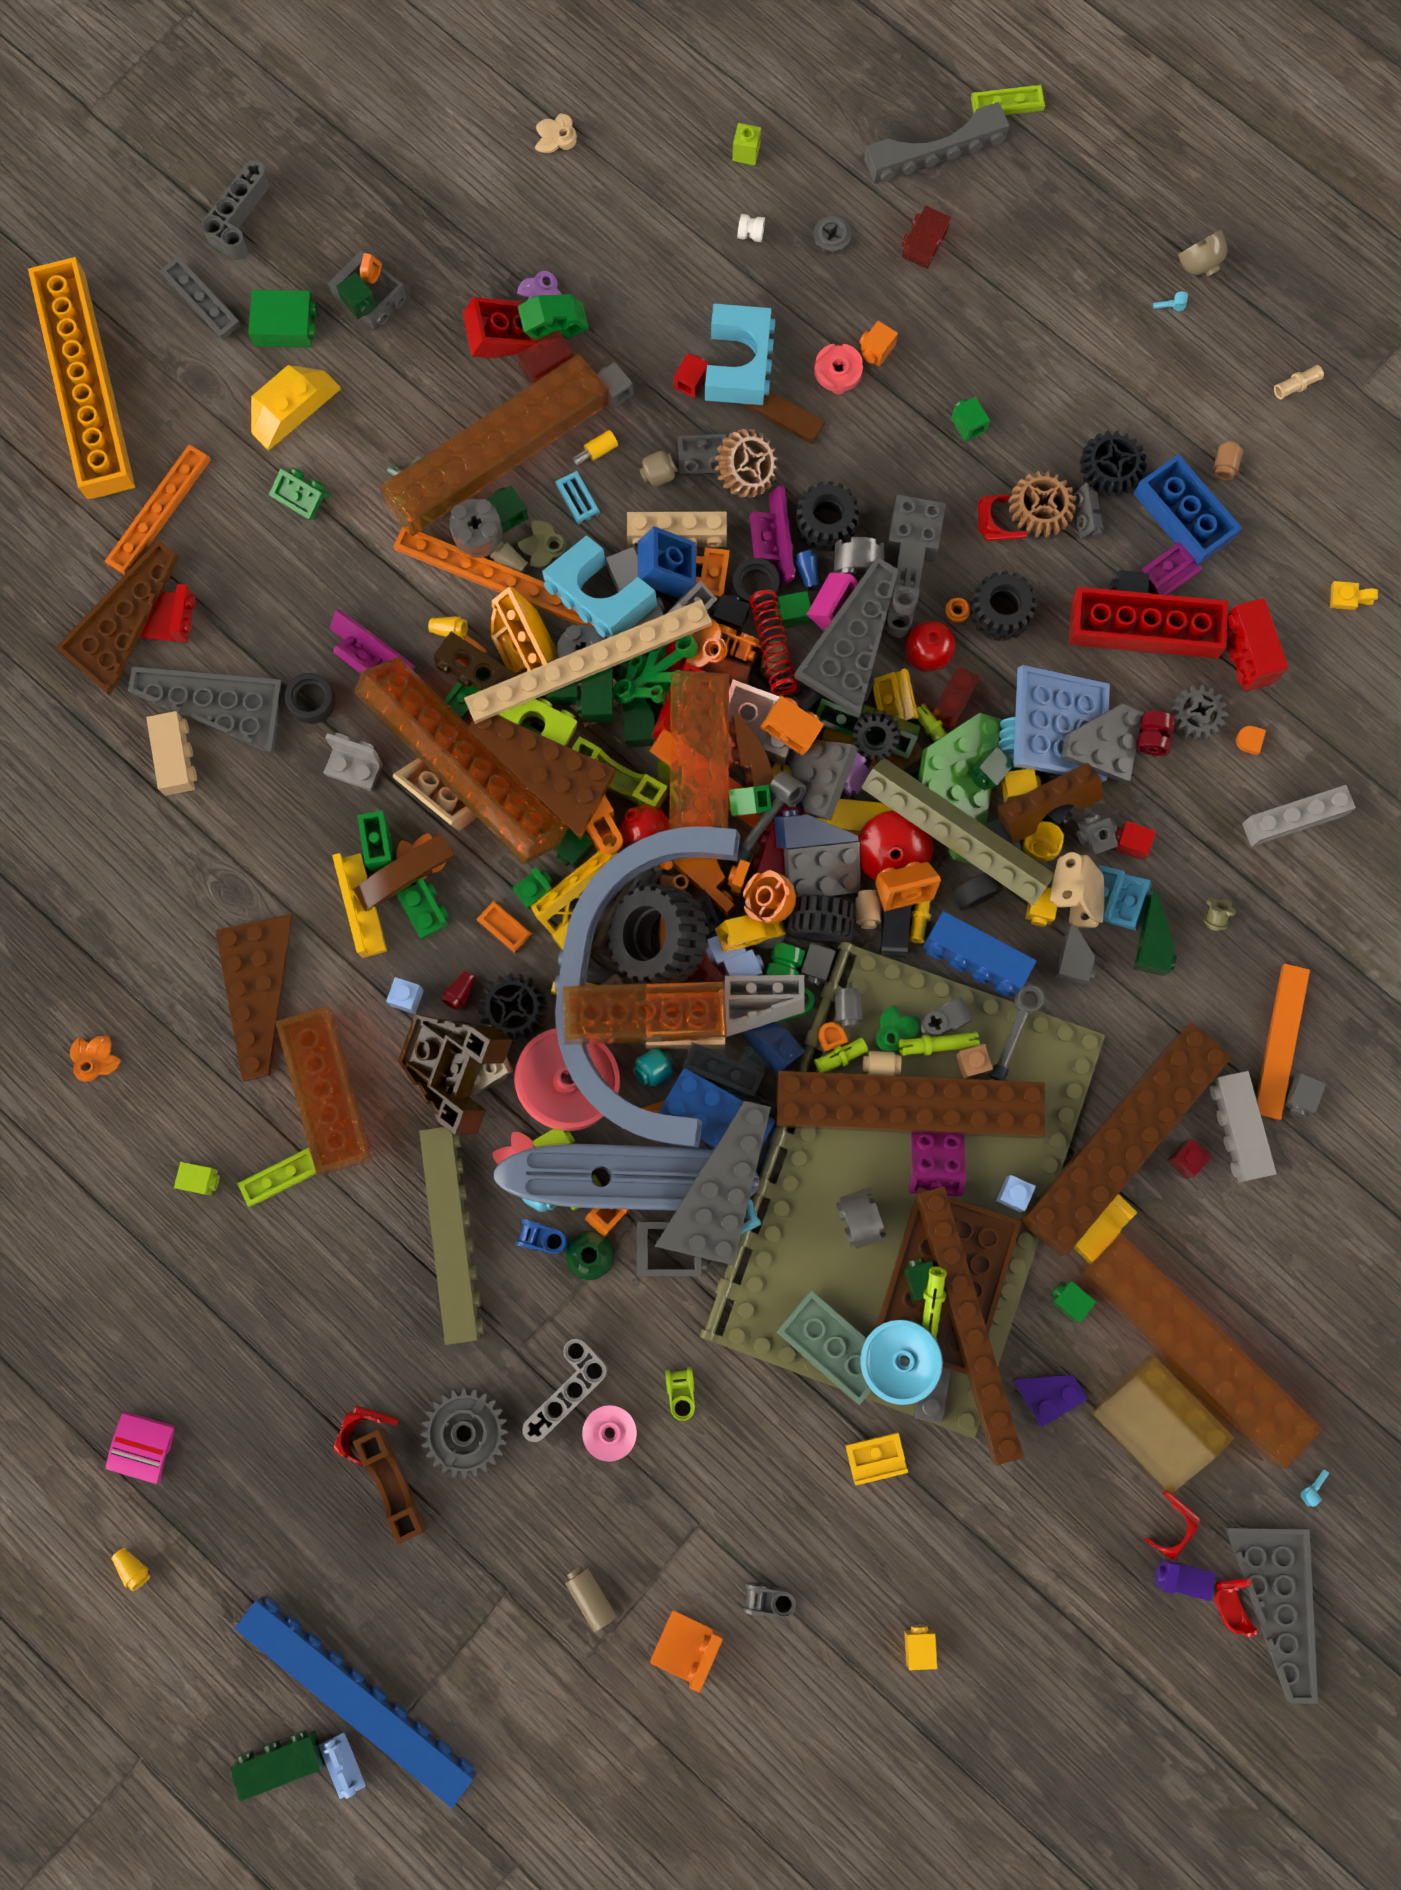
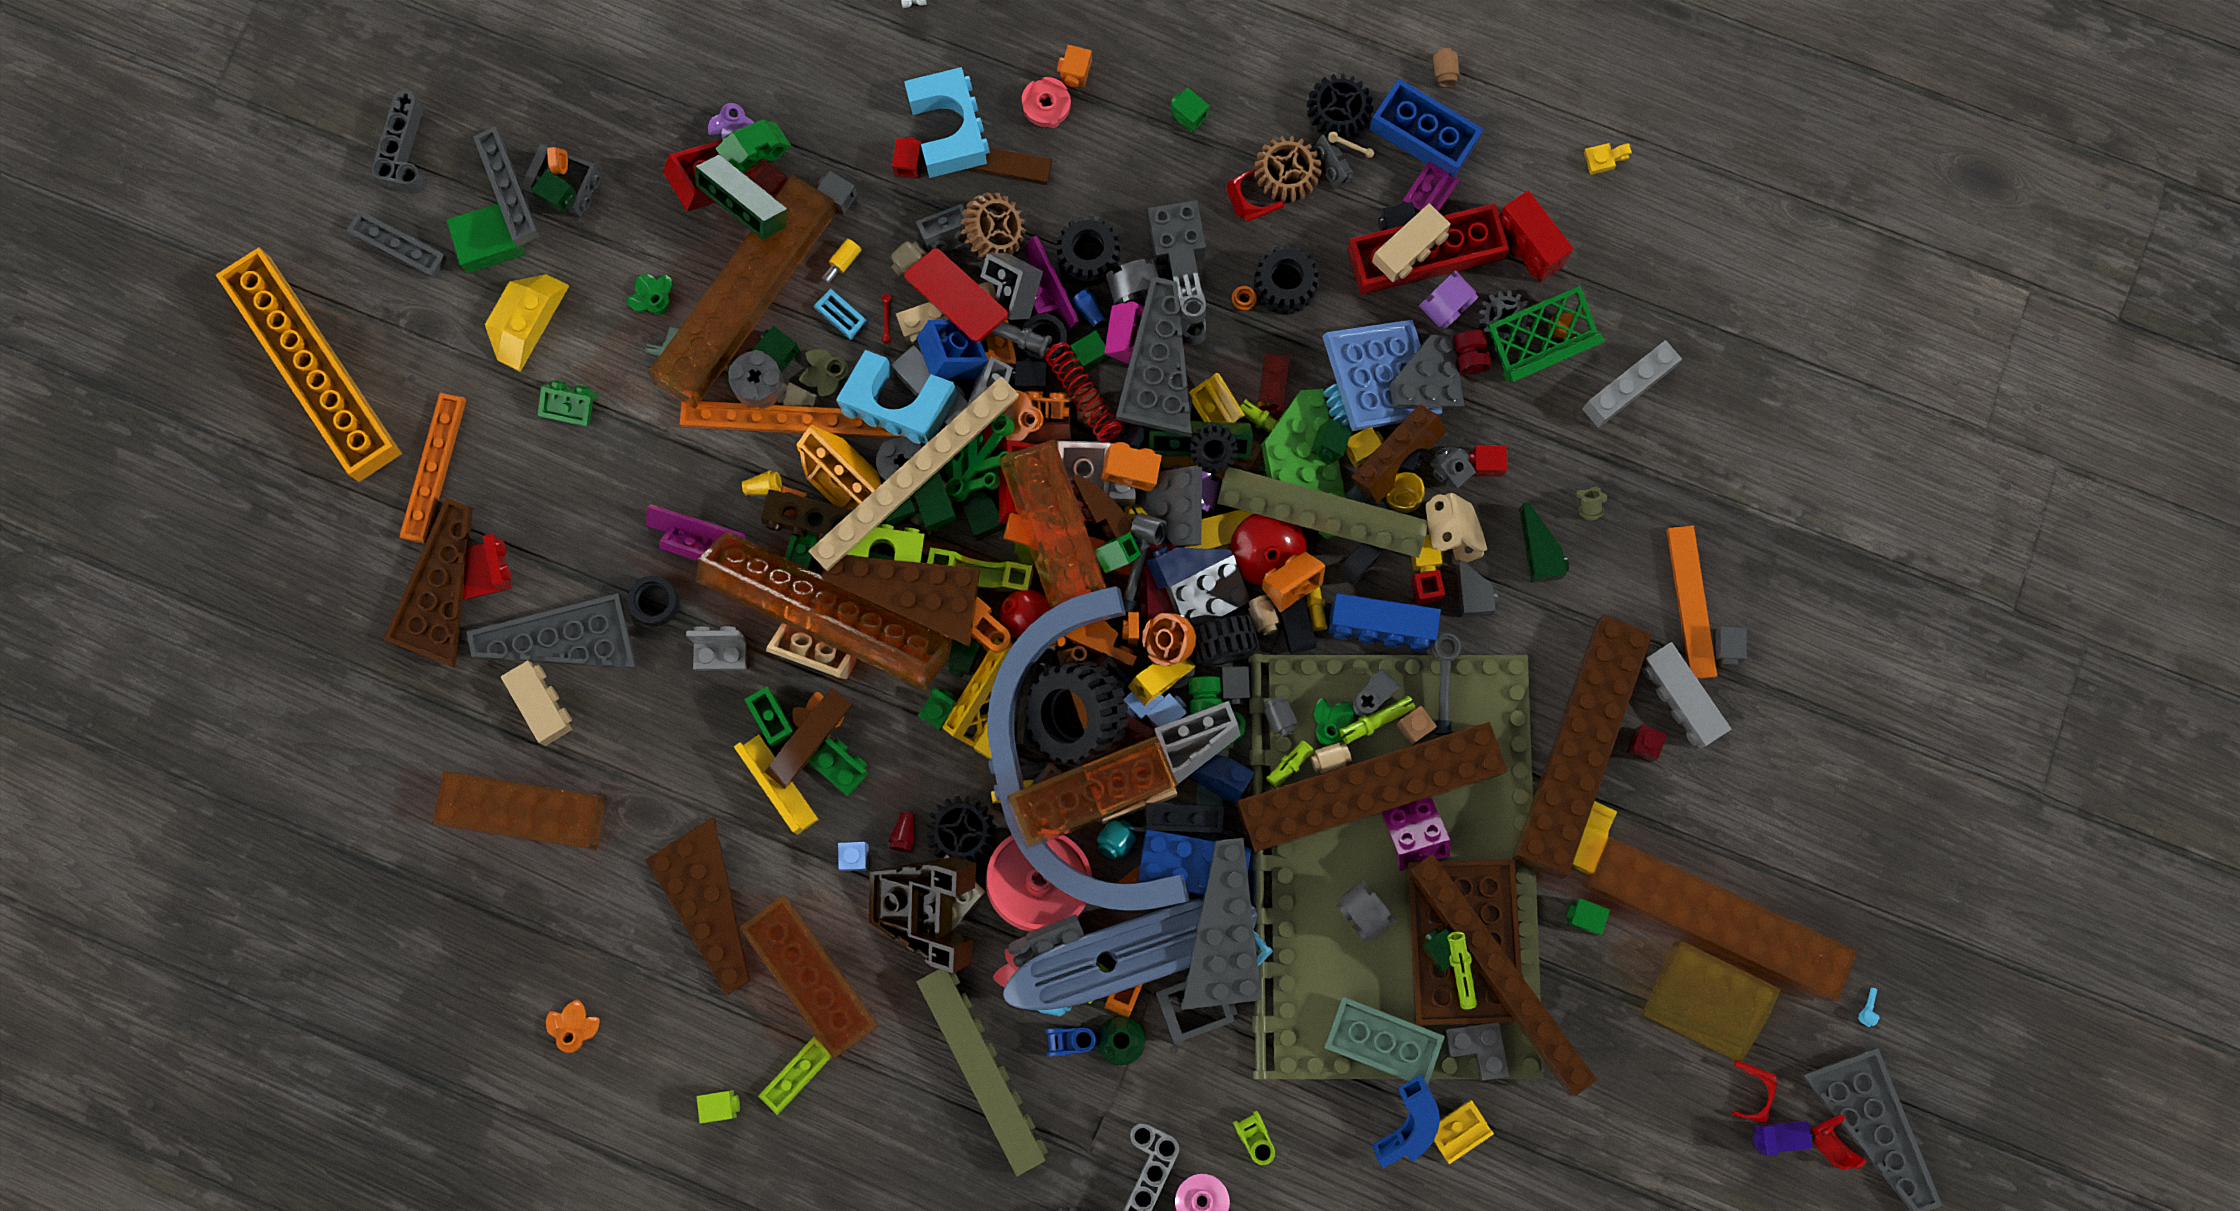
camera: 20 degrees left, 0 degrees up
(119, 845) = (519, 810): none -> clear orange brick
(316, 277) = (506, 186): none -> dark grey plate
(412, 420) = (649, 292): none -> green plate
(504, 927) = (923, 755): orange tile -> none
(523, 356) = (741, 197): none -> brick
(552, 1134) = (1044, 939): none -> dark grey hinge
(624, 498) = (886, 300): none -> red hinge
(688, 513) = (956, 295): none -> red piece
(737, 574) = (1024, 338): none -> dark grey pin
(747, 521) = (1015, 282): none -> dark grey brick
(831, 1036) = (1274, 749): orange tile -> none
(838, 1441) = (1419, 1128): none -> blue arch
(884, 1367) = (1441, 1048): medium azure dish -> none
(930, 646) = (1230, 342): red cylinder -> none
(1015, 1193) = (1499, 835): light blue brick -> none
(1032, 937) = (1427, 587): none -> red brick
(1050, 1396) = (1598, 1013): dark purple wing -> none
(1096, 489) = (1333, 137): none -> tan hinge
(1123, 897) = (1498, 518): dark azure slope -> none
(1134, 610) = (1412, 243): none -> tan brick
(1149, 676) = (1447, 299): none -> medium lavender brick
(1227, 761) = (1550, 355): none -> green fence

